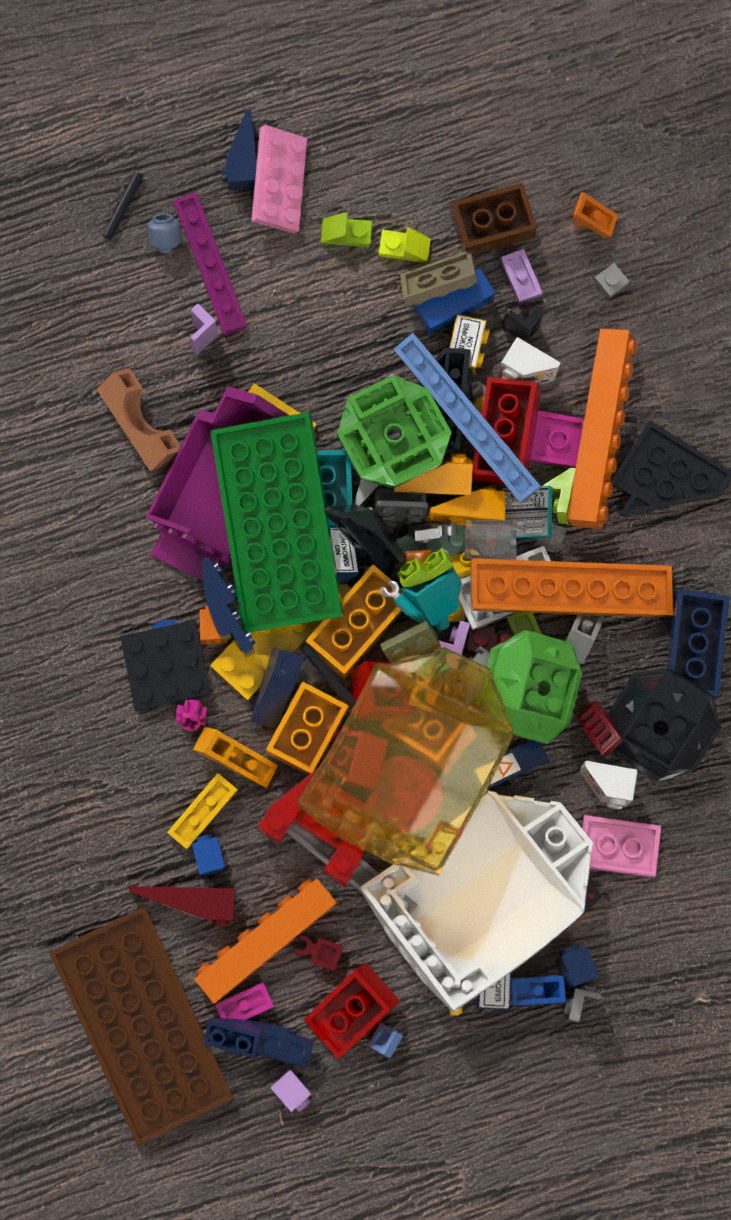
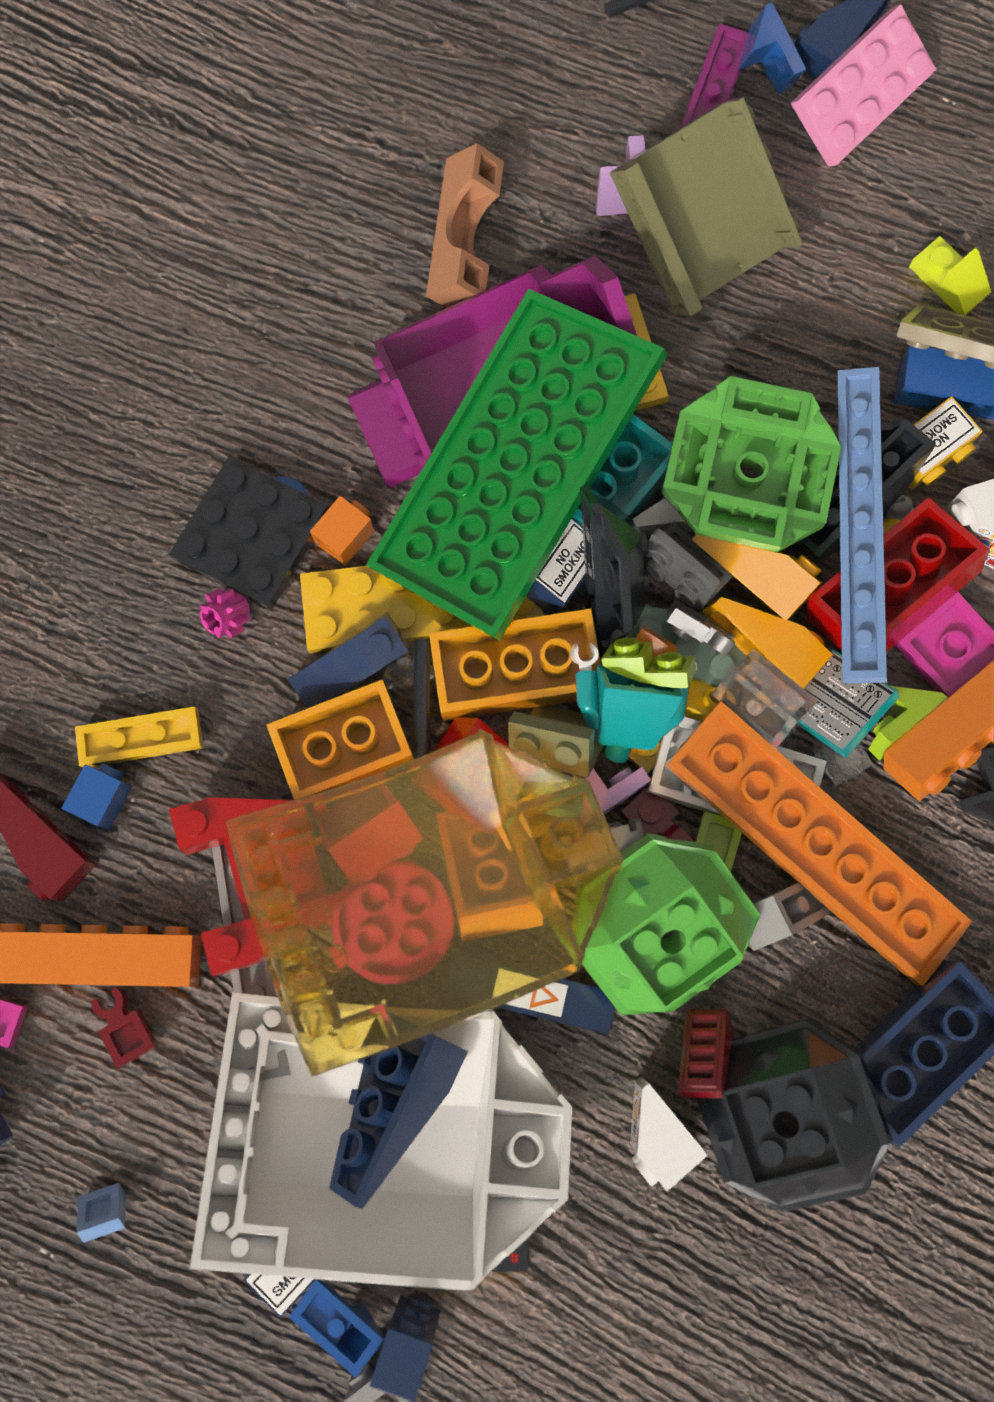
camera: 50 degrees right, 0 degrees up
(164, 233) = (676, 46): sand blue head -> none
(209, 193) = (772, 45): none -> blue slope
(219, 601) = (366, 501): dark blue slope -> none
(235, 756) = (232, 706): light orange slope -> none
(256, 312) = (706, 204): none -> olive panel
(346, 232) = (893, 208): lime slope -> none
(352, 1010) = (97, 1138): red slope -> none
(479, 872) = (391, 1107): none -> dark blue wedge
(623, 845) = (610, 1226): bright pink tile -> none

